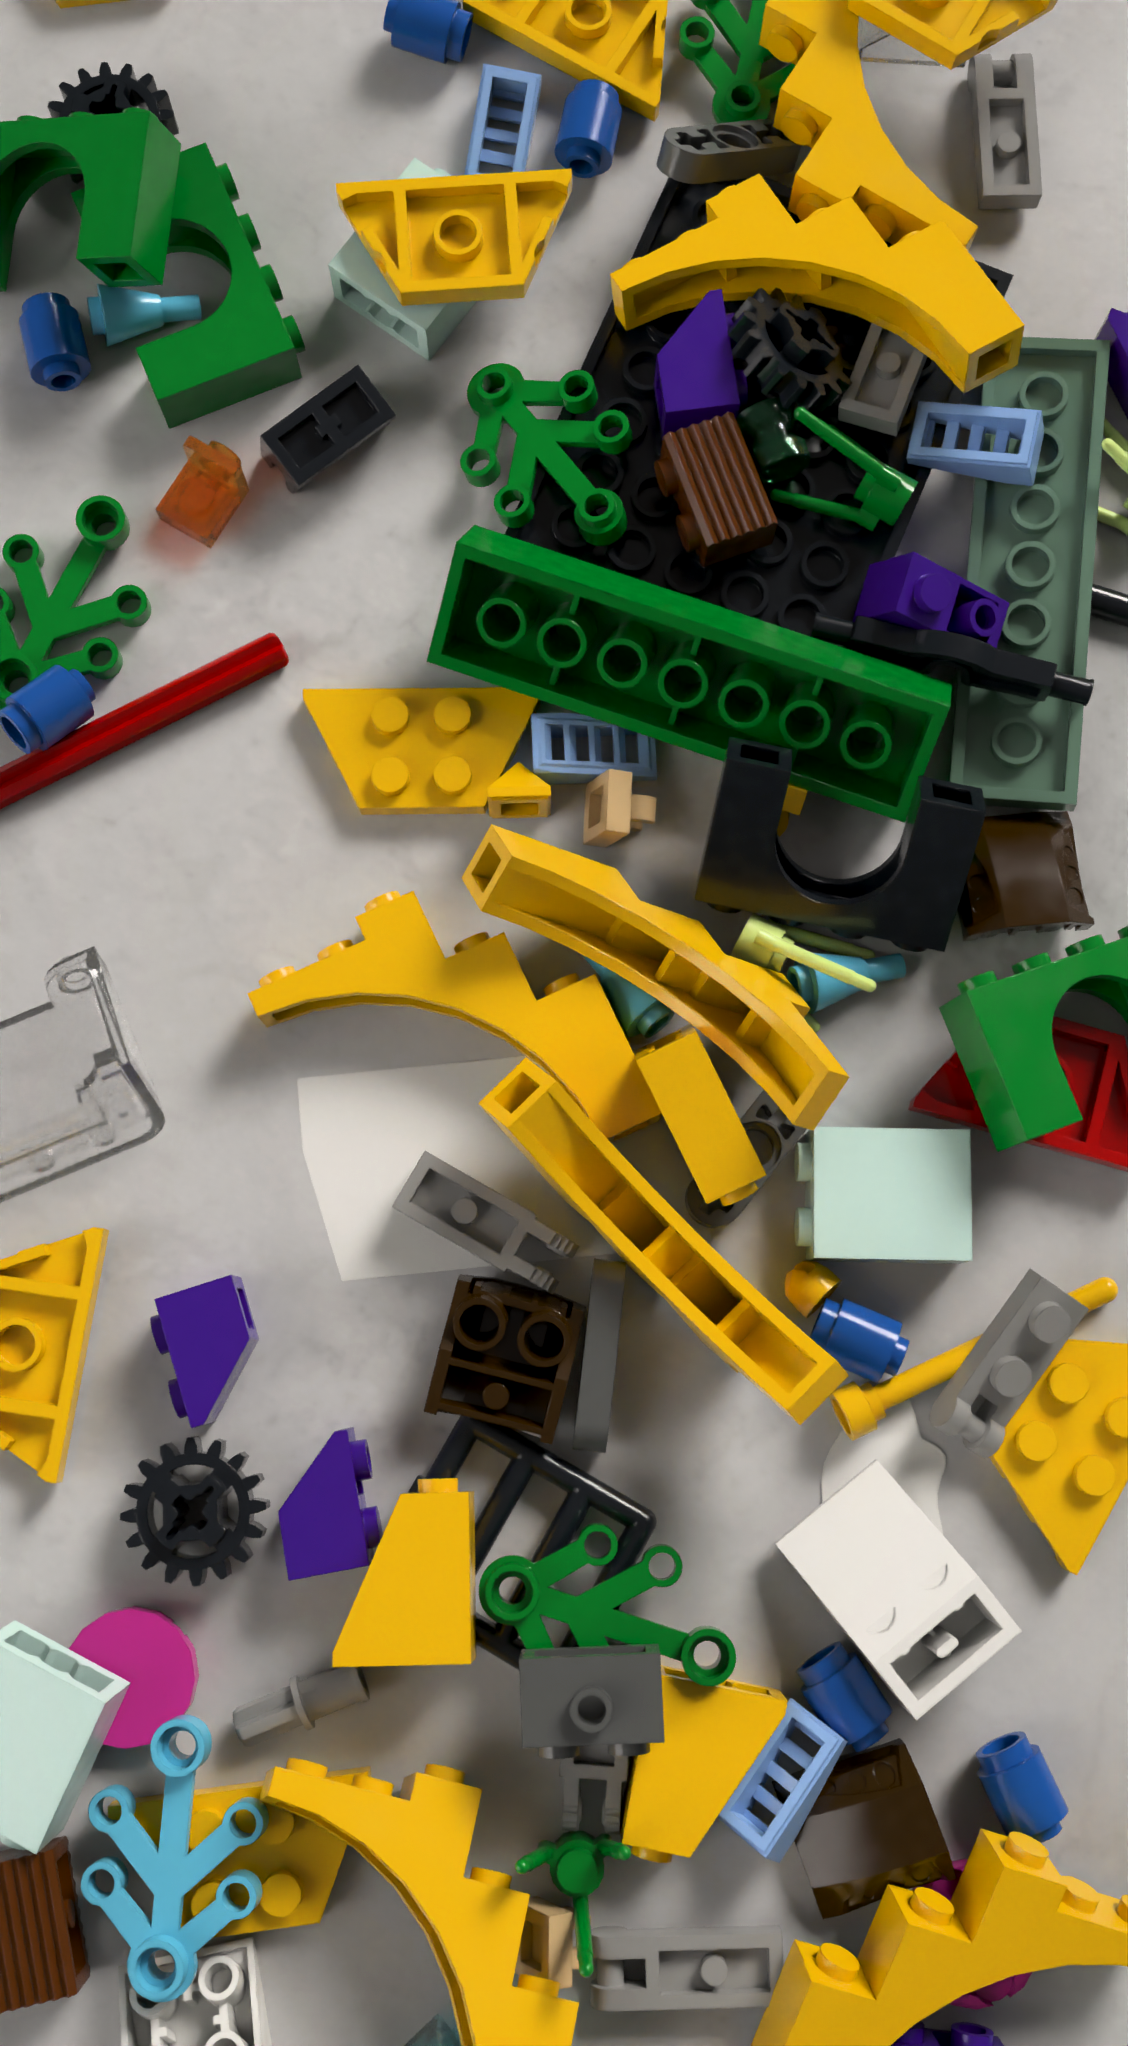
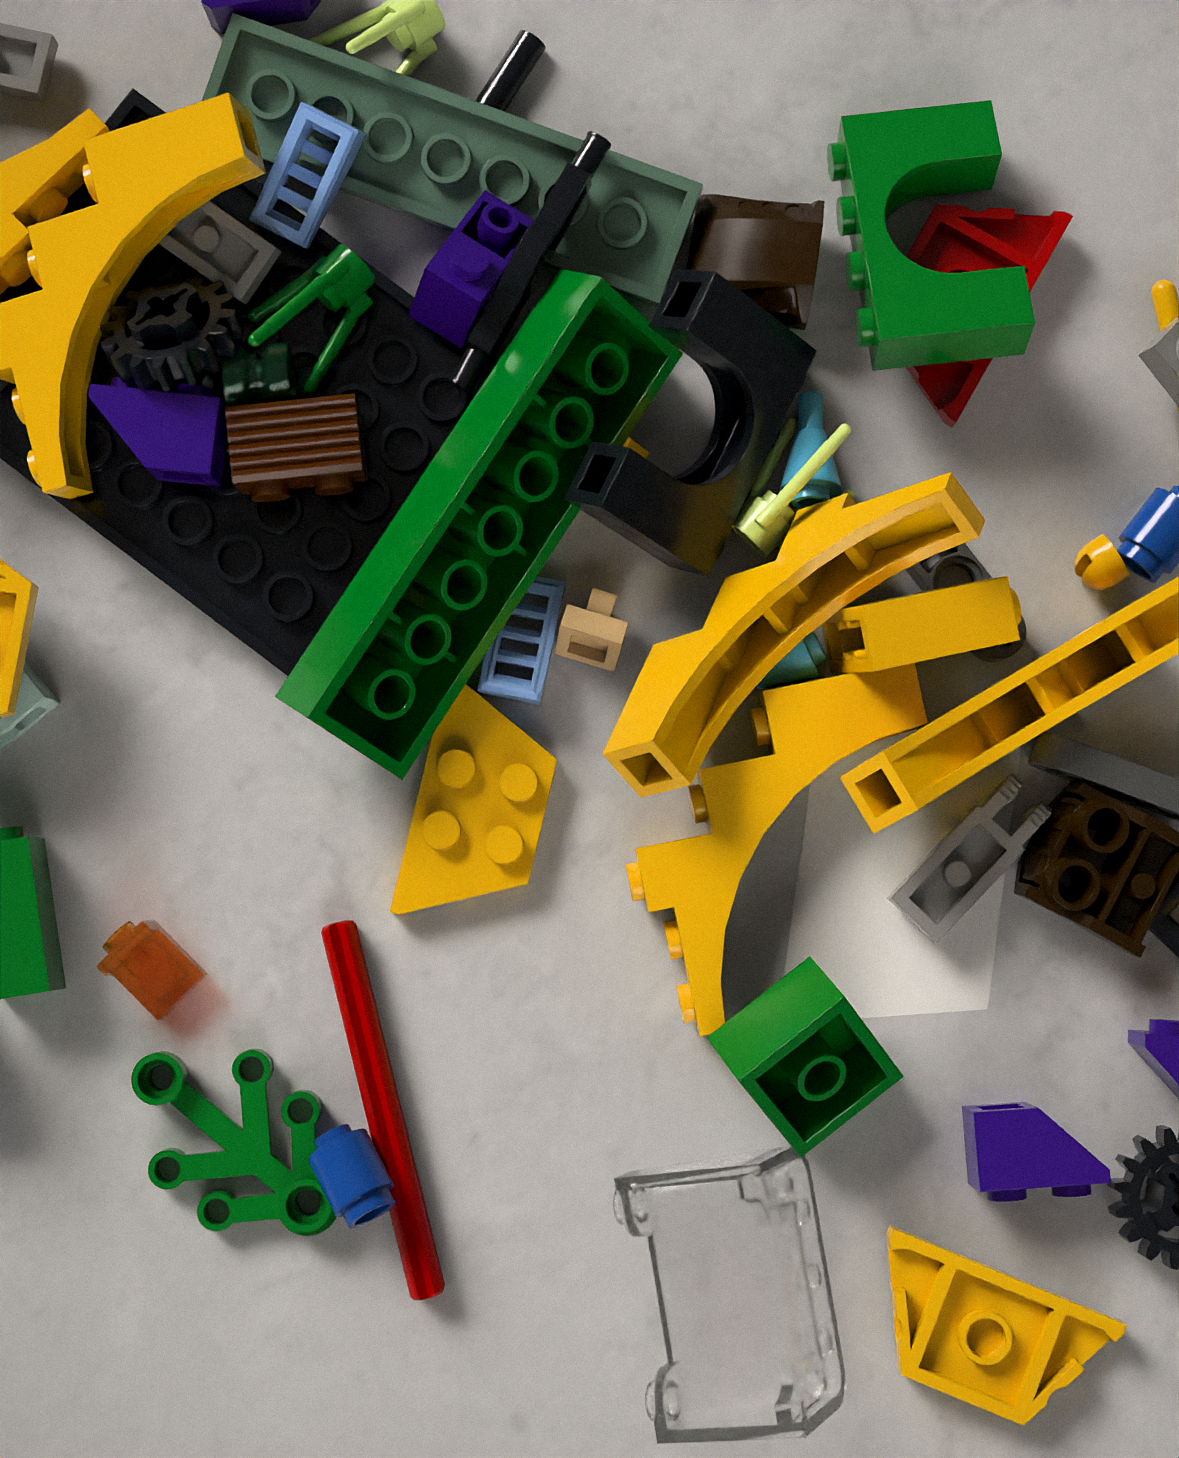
camera: 75 degrees left, 5 degrees up
(247, 1095) = (805, 1056): none -> green brick
(325, 428) = (123, 823): black hinge -> none
(519, 795) = (553, 720): yellow slope -> none
(541, 442) = (191, 610): green plant -> none
(885, 1195) = (1038, 468): light aqua brick -> none

